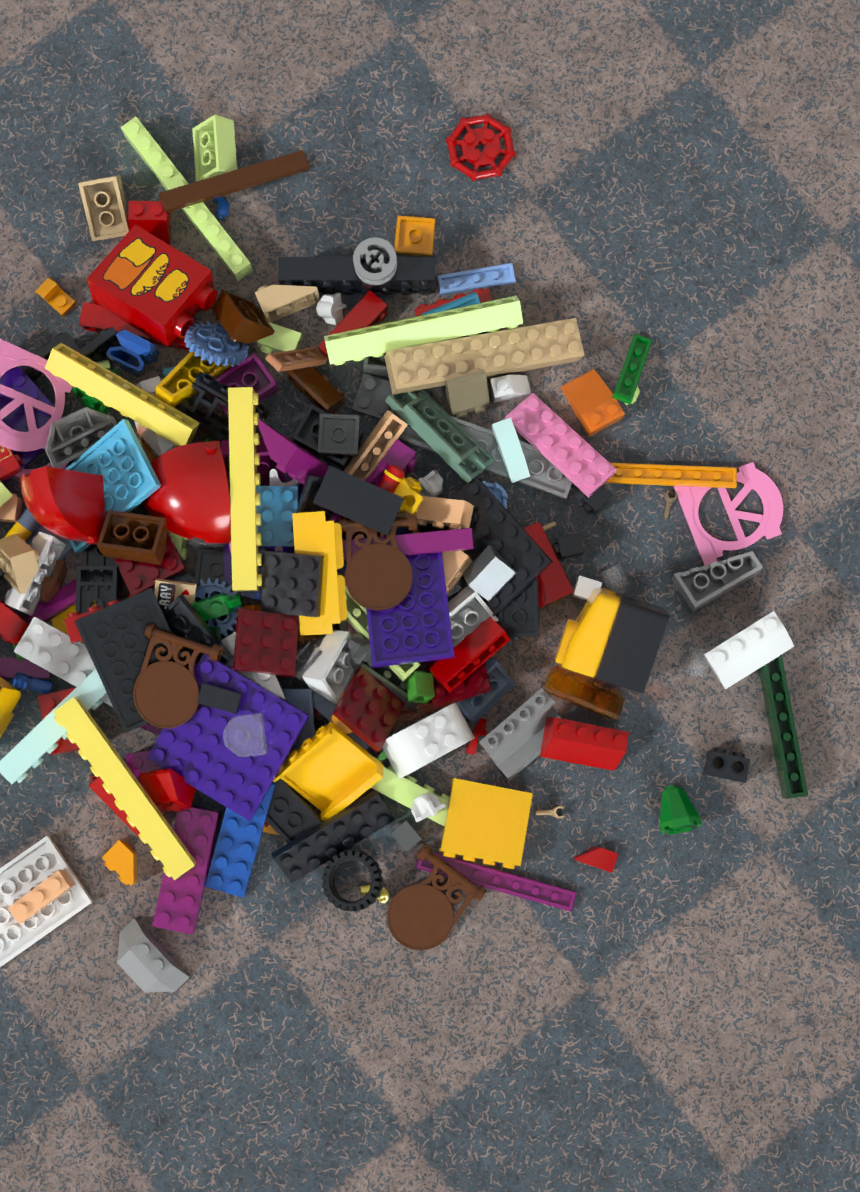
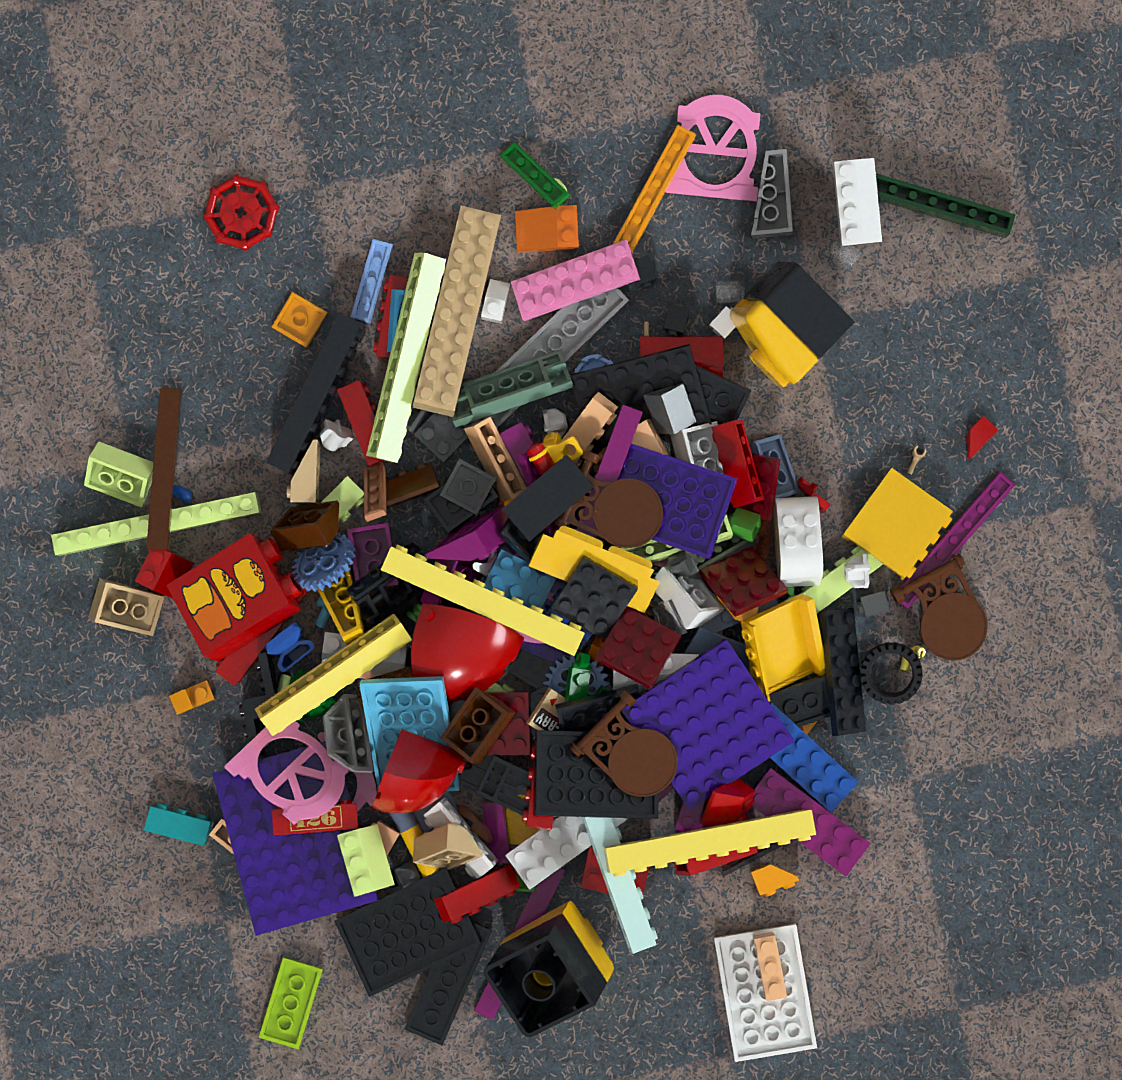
camera: 65 degrees left, 5 degrees up
(36, 684) = (567, 883): blue bar -> none
(128, 833) = (751, 859): none -> black sticker
(148, 961) = (873, 897): light grey wedge -> none
(220, 698) = (671, 713): black tile -> none
(246, 735) = (717, 705): clear tile -> none
(368, 250) = (302, 378): light grey wheel -> none
(467, 394) = (486, 346): dark tan slope -> none
(510, 450) = (559, 330): light aqua slope -> none
(520, 735) = (836, 448): light grey panel -> none
(582, 694) = (822, 375): clear orange slope -> none
(583, 743) = (868, 398): red slope -> none
(669, 501) = (678, 204): dark tan hand -> none
(677, 812) = (971, 342): green cone -> none
(725, 770) = (954, 277): black brick -> none

